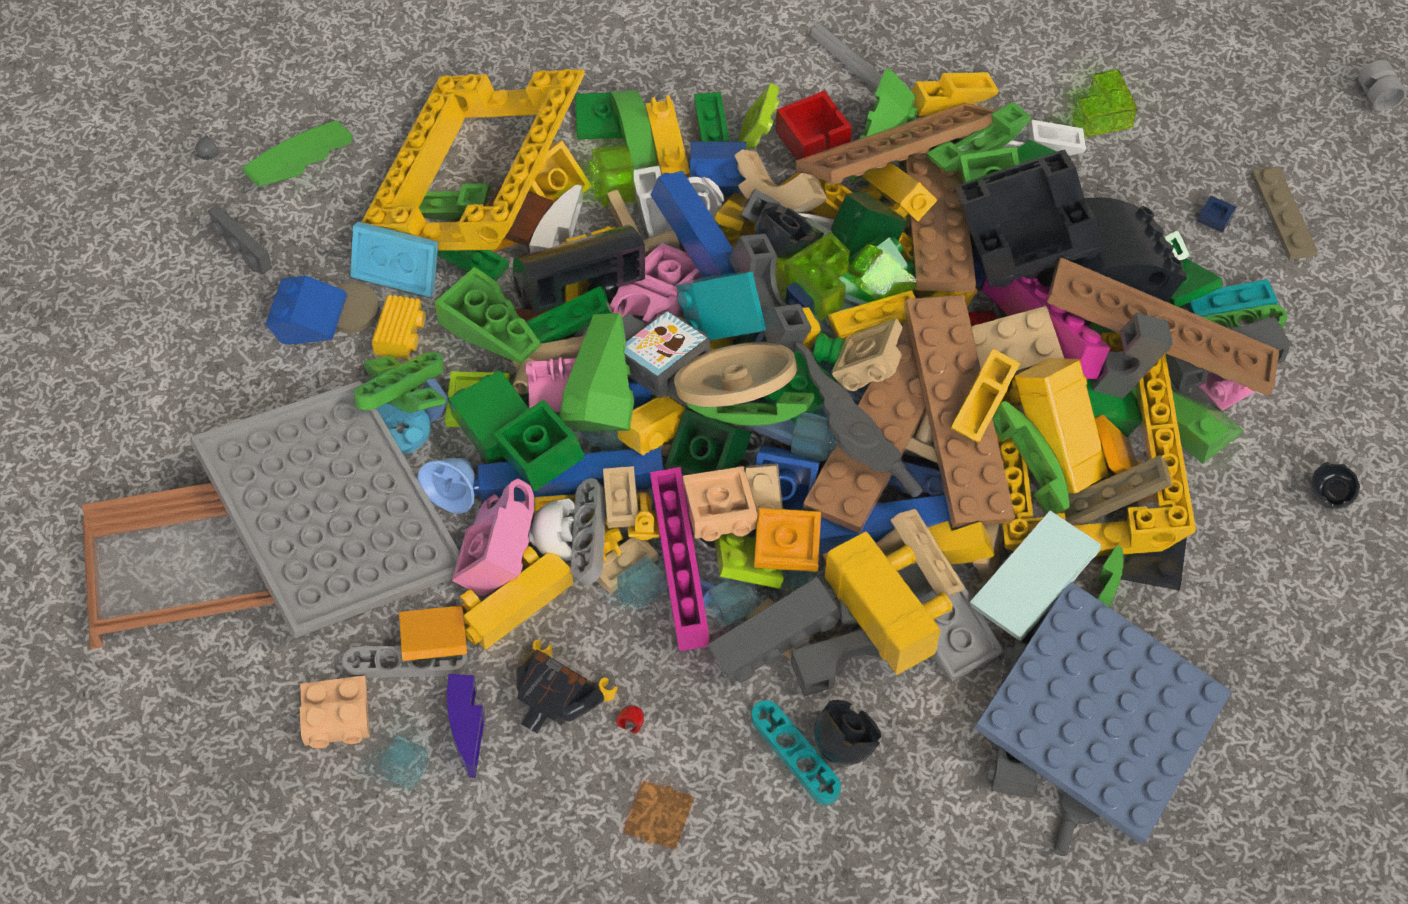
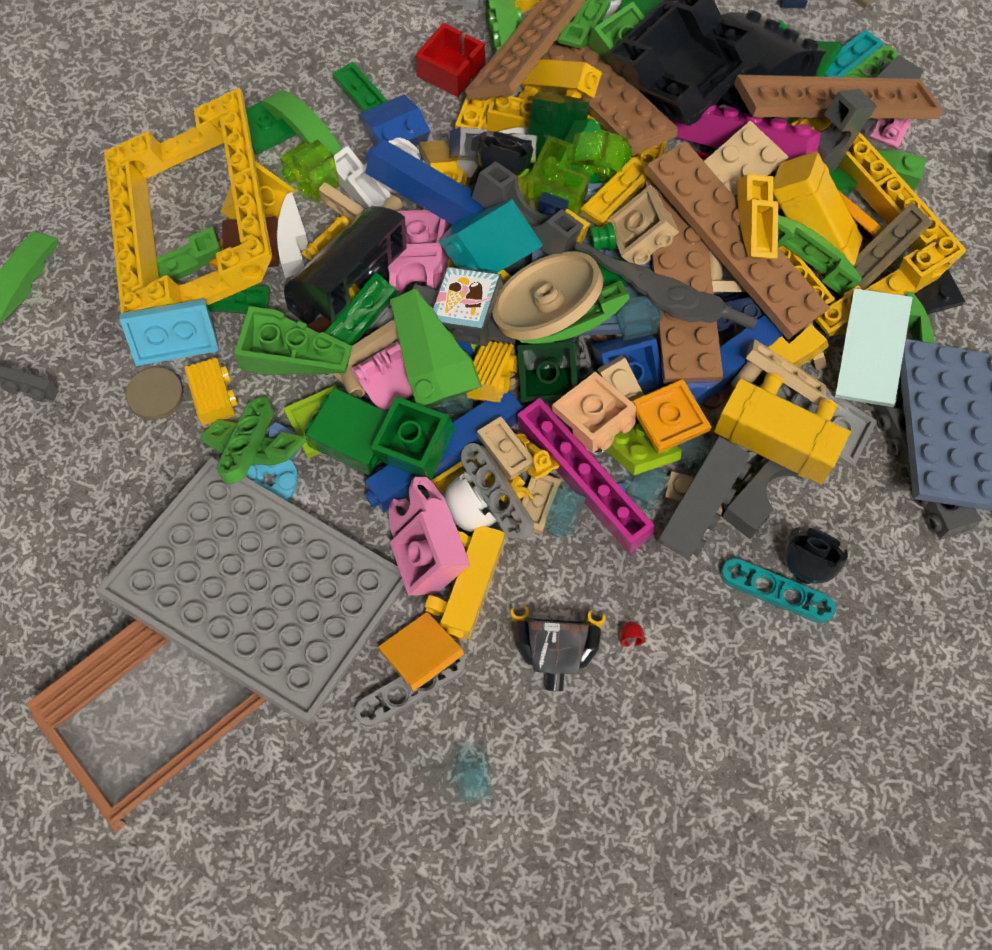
camera: 30 degrees left, 10 degrees up
(305, 310) = (119, 416): blue slope -> none
(334, 711) = (379, 768): light nougat plate -> none
(449, 483) = (349, 509): light blue hat -> none
(465, 720) = (499, 715): dark purple slope -> none
(659, 815) = (706, 705): clear orange piece -> none
(667, 137) = (339, 122): yellow brick -> none
(758, 117) = (401, 68): lime plate -> none
(799, 194) = (487, 116): tan arch -> none

